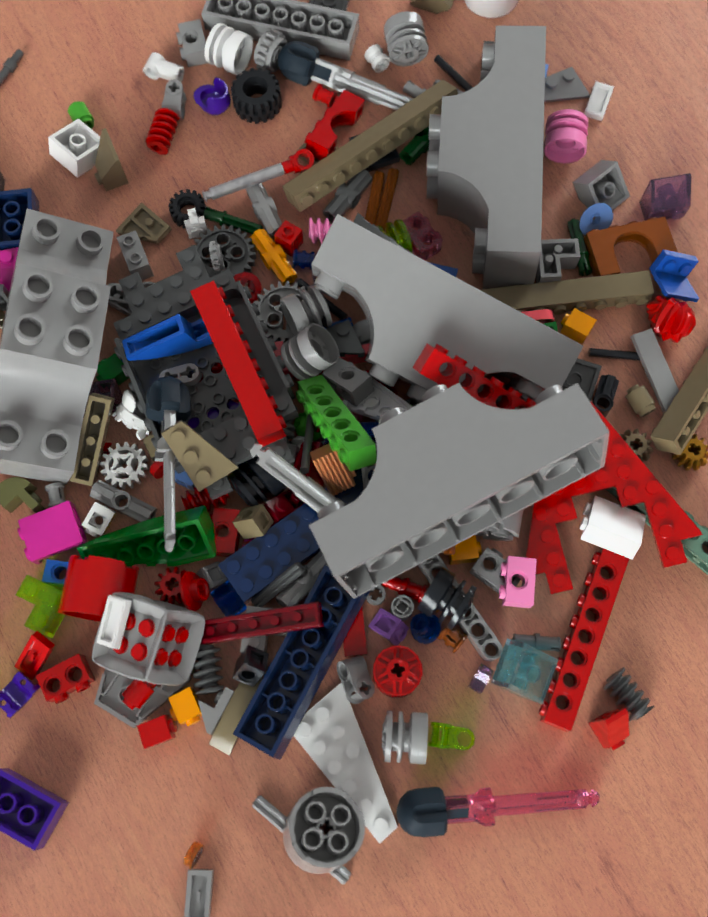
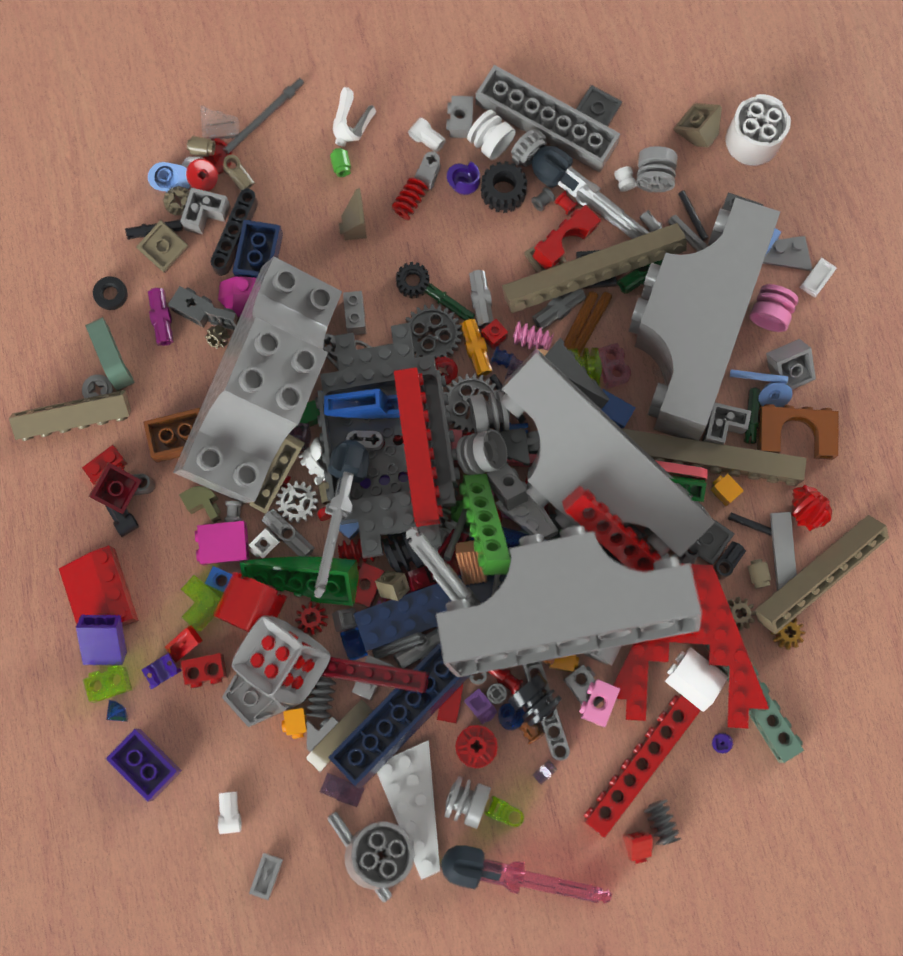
camera: 15 degrees right, 5 degrees up
(73, 84) = (340, 128): none -> white piece
(75, 147) = (329, 193): white slope -> none
(114, 621) = (257, 640): white tile -> none
(137, 693) = (258, 702): red brick -> none
(138, 841) = (229, 818): none -> white piece
(147, 225) = (371, 285): dark tan wing -> none
(157, 731) = (267, 735): red brick -> none
(193, 590) = (327, 628): red piece -> none
(193, 854) = (270, 842): clear orange tile -> none
(195, 224) = (415, 298): white plate -> none
(197, 456) = (362, 523): dark tan wing -> none
(216, 257) = (425, 338): light grey gear -> none
(250, 666) = (357, 706): black brick -> none
(259, 768) = (341, 790): none -> slope
(262, 175) = (485, 270): flat silver piece -> none
(300, 98) = (543, 199): none -> dark grey bush
(355, 678) = (440, 740): light grey piece -> none
(524, 671) = (581, 778): clear light blue brick -> none
(540, 642) = (600, 756): dark grey pin -> none
(572, 206) = (759, 376): none -> light blue bar
(662, 588) = (722, 743): none -> dark purple tile
(667, 197) = (846, 394): clear purple slope -> none
(671, 274) = (825, 470): blue bracket -> none

